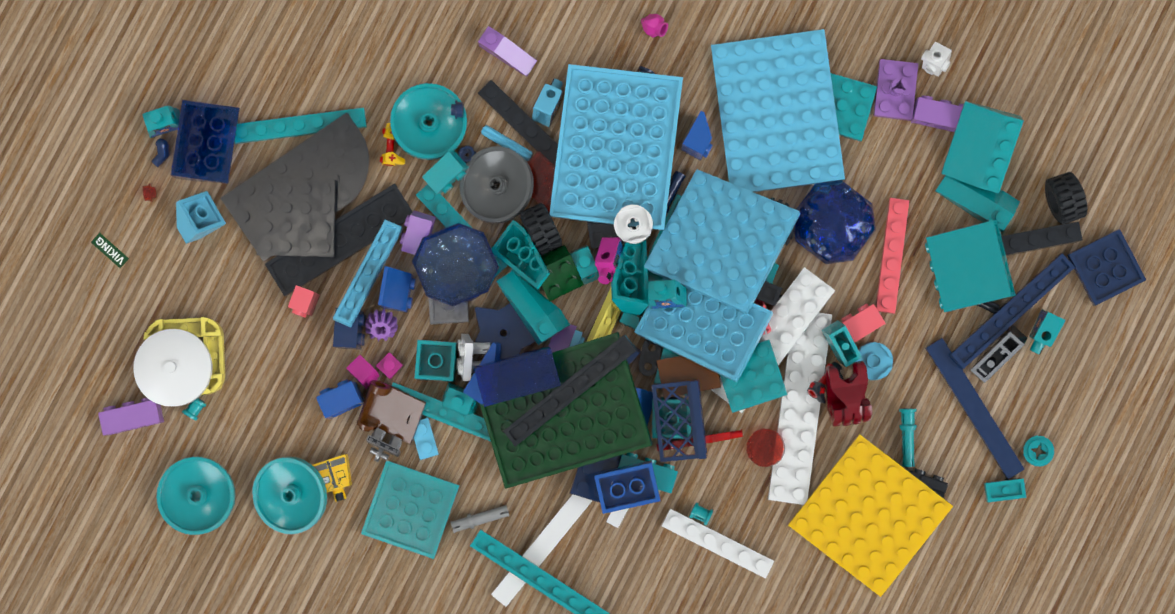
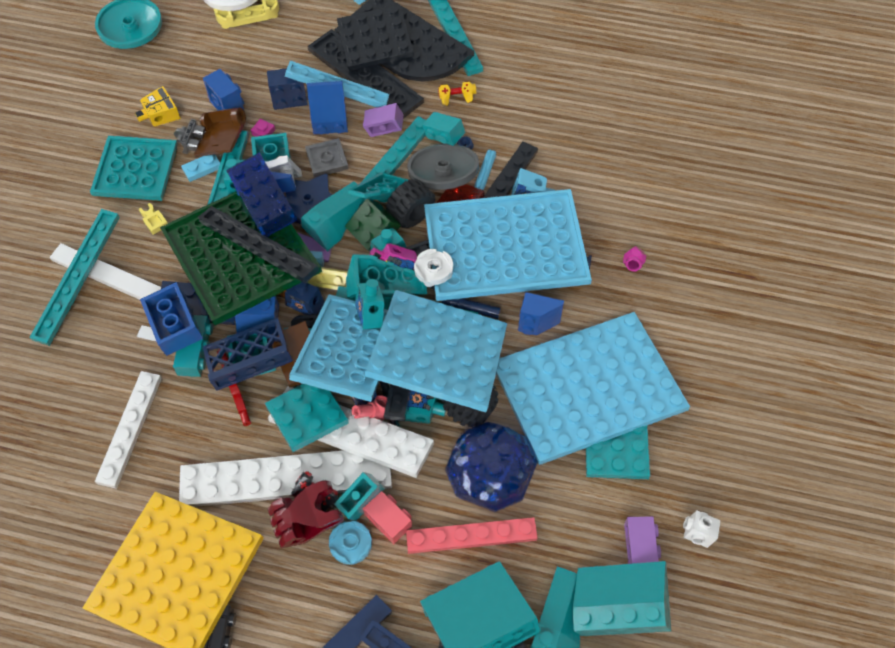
camera: 75 degrees right, 25 degrees down
(194, 409) = (202, 11): teal bush -> none
(289, 495) = (136, 79): teal dish -> none
(303, 301) = (304, 51): coral brick -> none
(362, 371) = (253, 106): dark pink brick -> none
(381, 325) = (296, 111): medium lavender gear -> none
(425, 104) = (485, 107): teal dish -> none
(455, 264) = (358, 141): clear light blue rock -> none
(457, 109) = (501, 121): dark blue plate -> none
(480, 518) = (129, 215): light grey pin -> none
(486, 495) = (153, 219): none -> light yellow plate
(506, 51) = (567, 152): slope -> none
(701, 513) = (157, 404): teal bush -> none
(765, 447) = (235, 449): clear red tile -> none
(895, 89) = (654, 497): medium lavender plate -> none
(908, 426) = (279, 595): teal pin -> none

